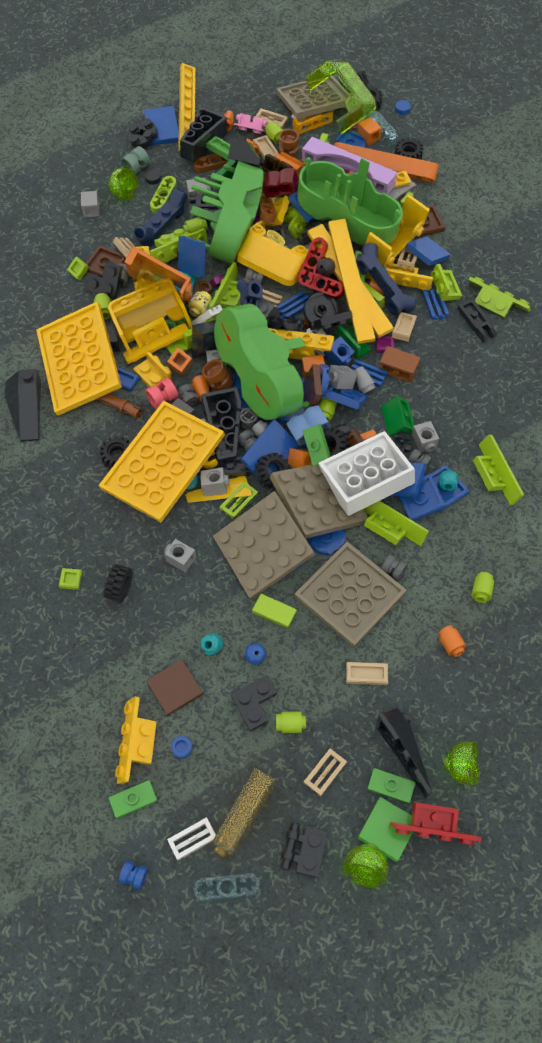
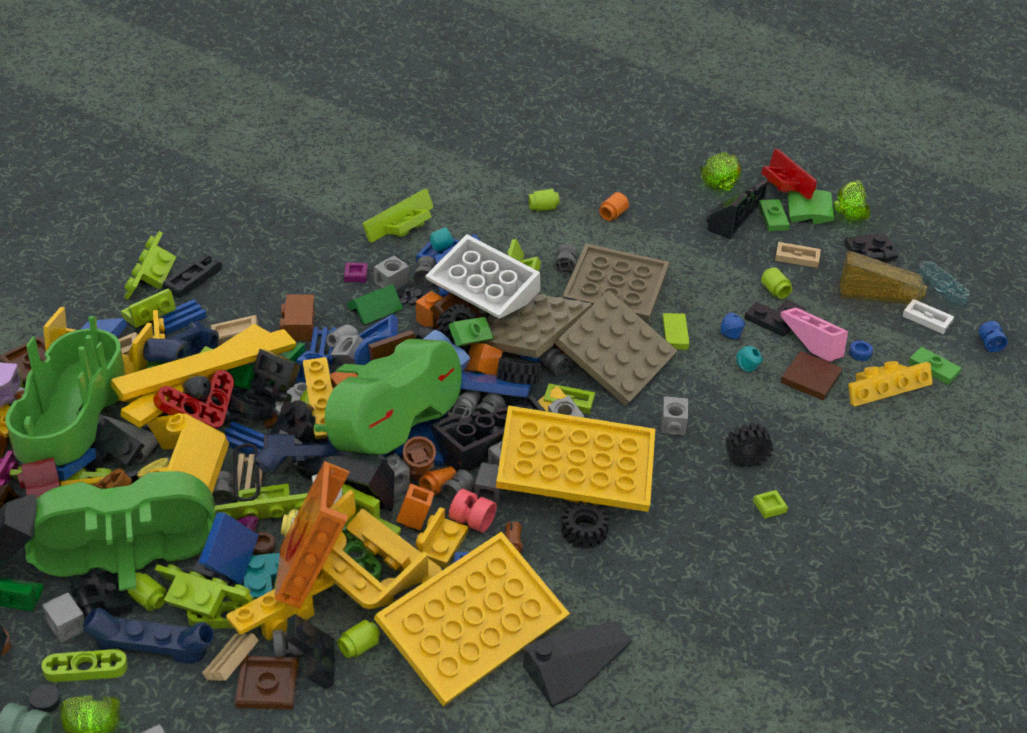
camera: 120 degrees left, 20 degrees down
(78, 268) = (298, 706): lime tile -> none
(212, 709) = (817, 334): none -> bright pink slope
(268, 288) = (236, 476): none -> black piece
(367, 673) = (686, 254): tan tile -> none
(443, 420) = (355, 272): none -> magenta tile

